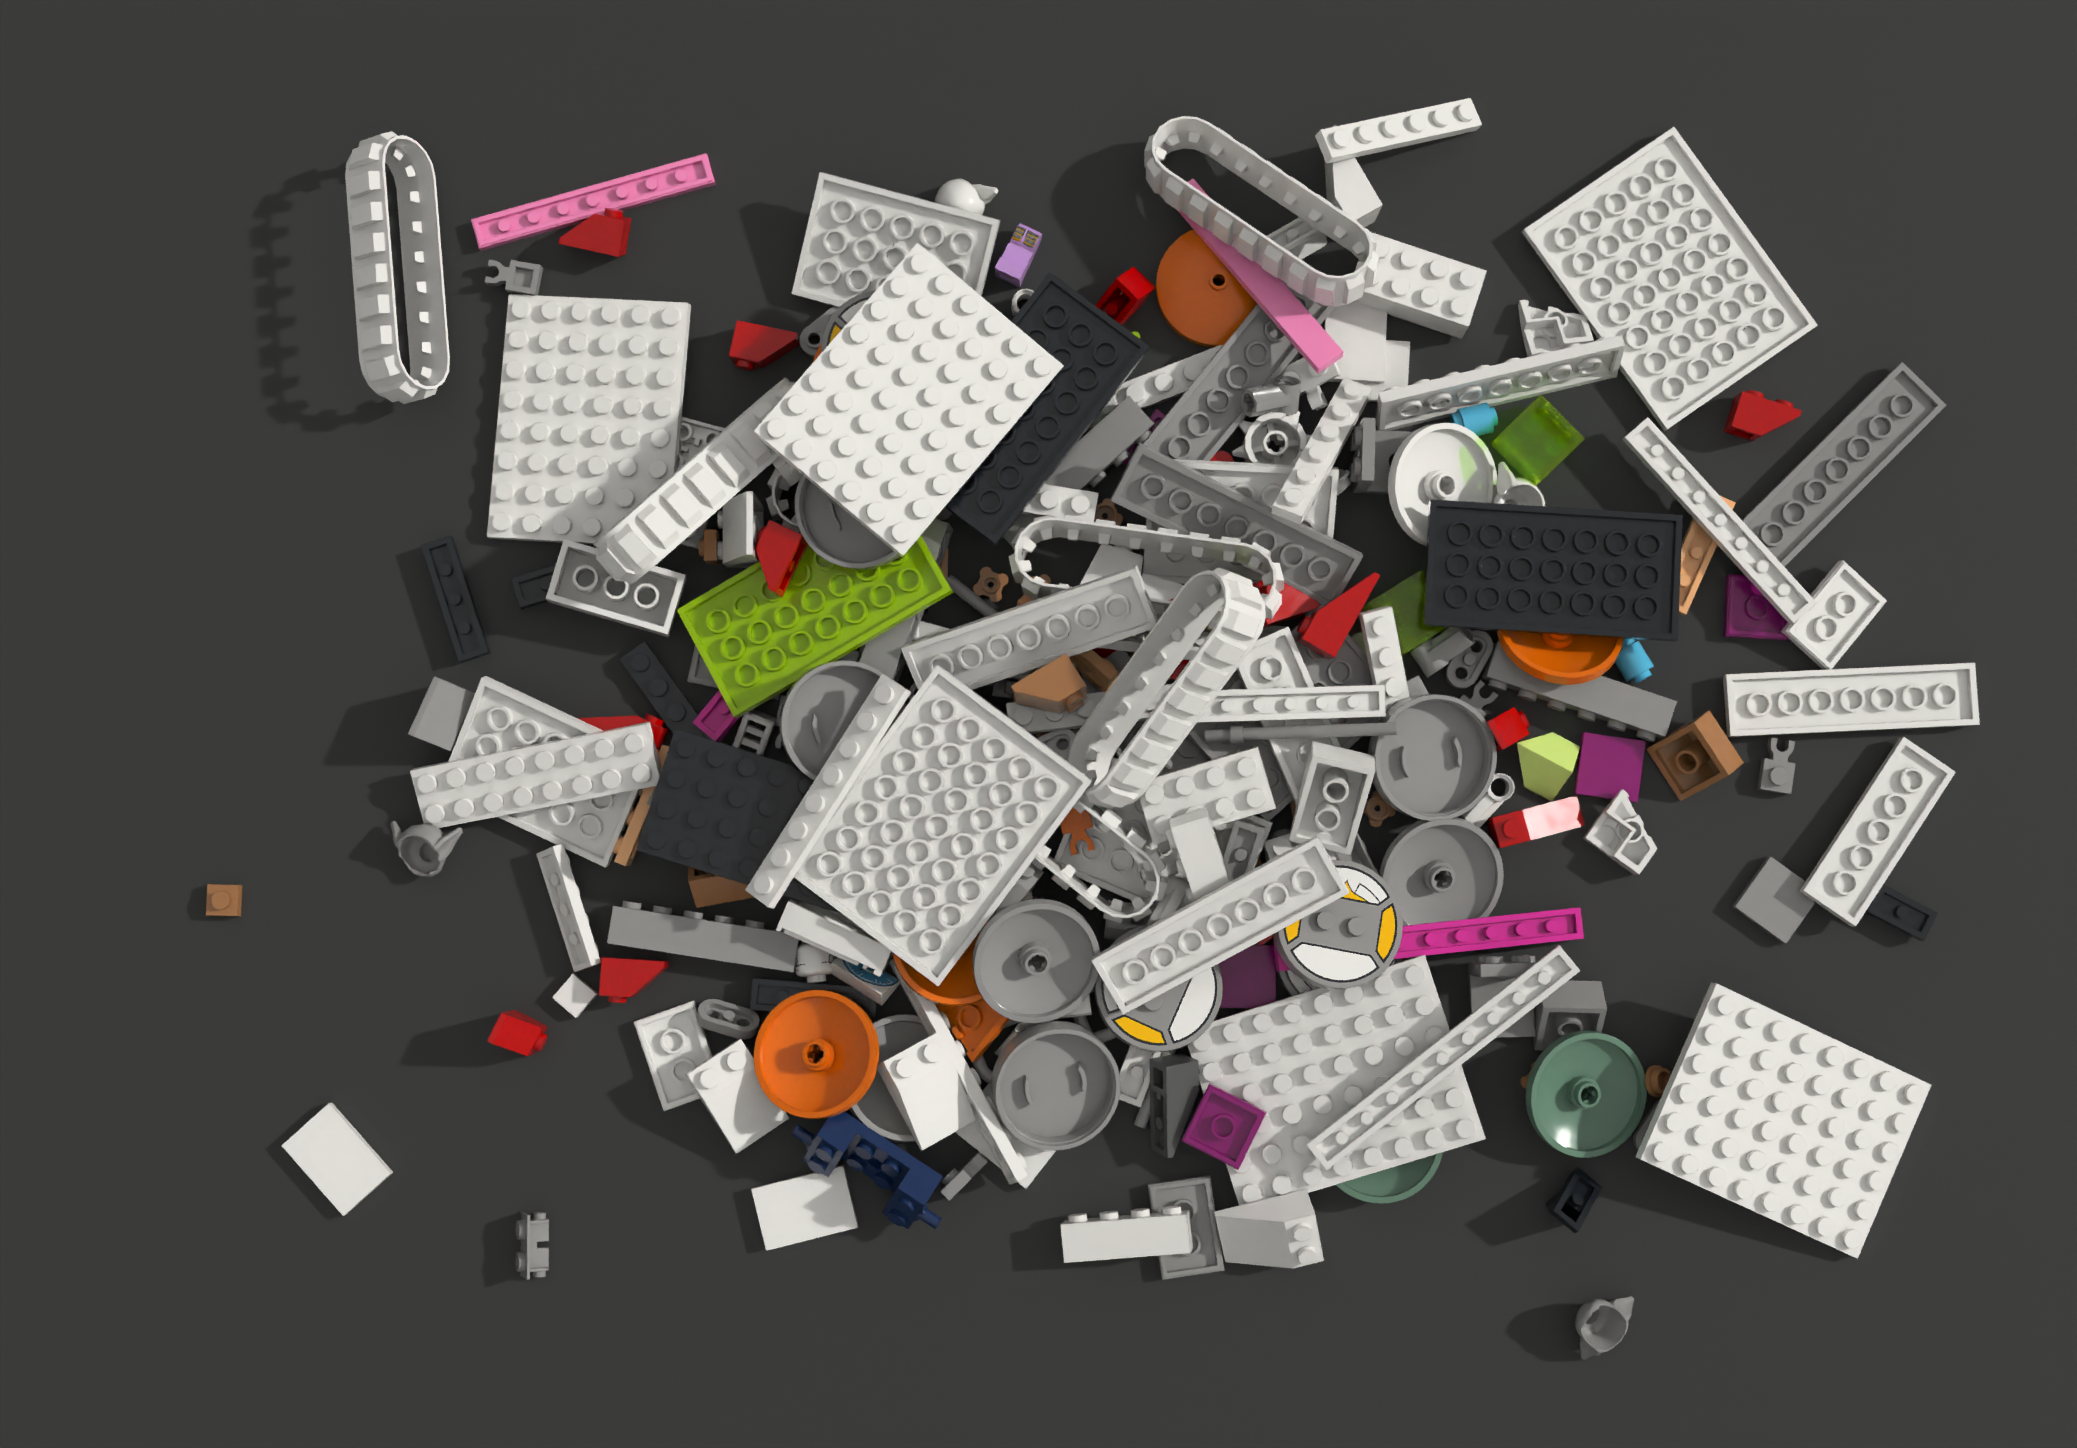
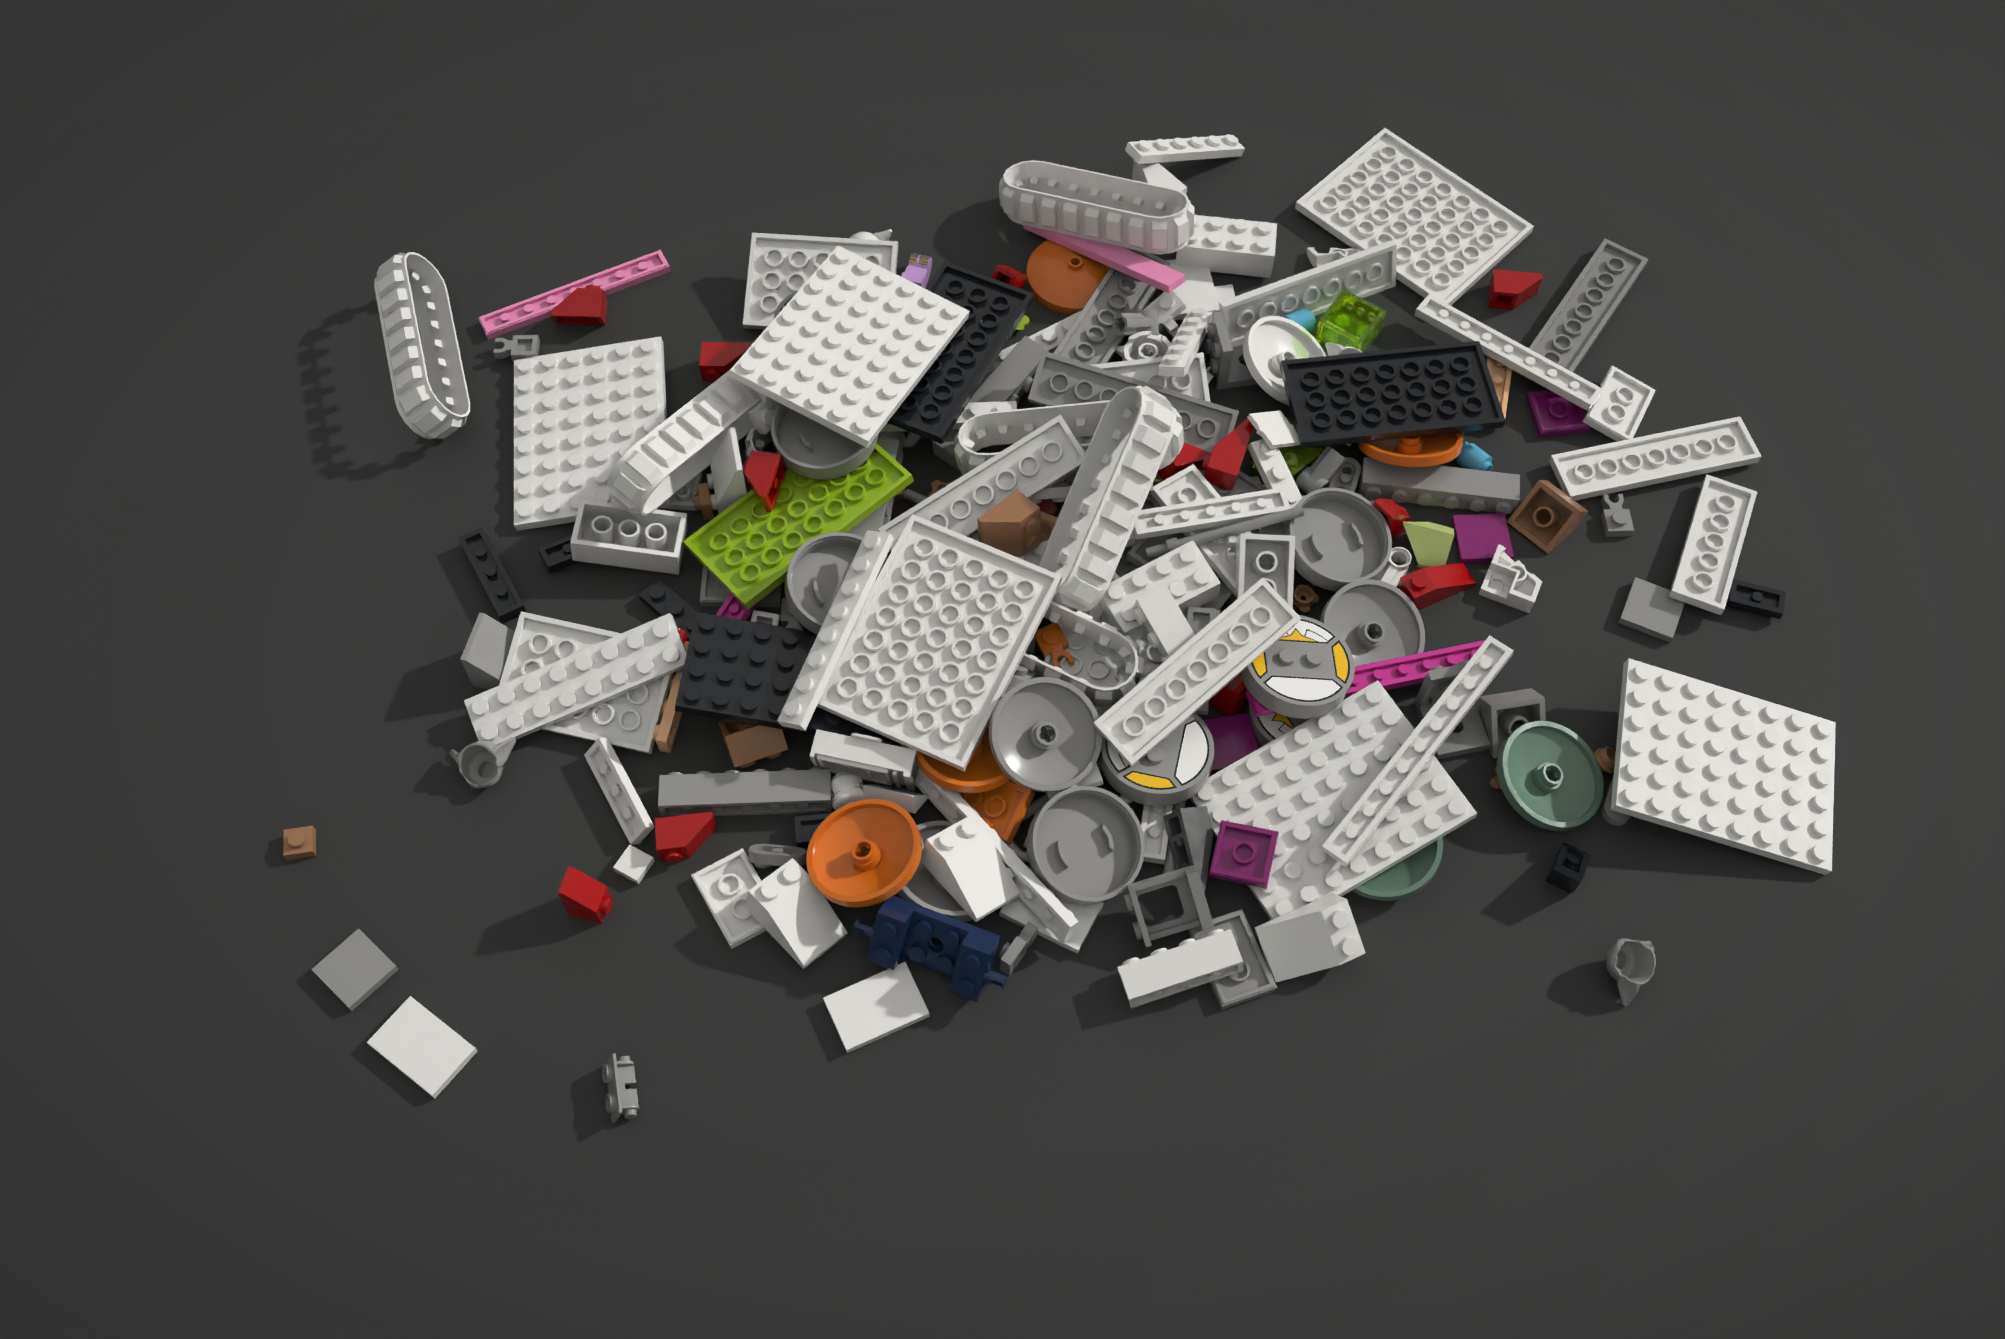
camera: 15 degrees left, 25 degrees down
(274, 1059) = (355, 969): none -> light grey tile
(1156, 1160) = (1192, 898): none -> light grey window
(1397, 598) = (1274, 429): none -> white piece

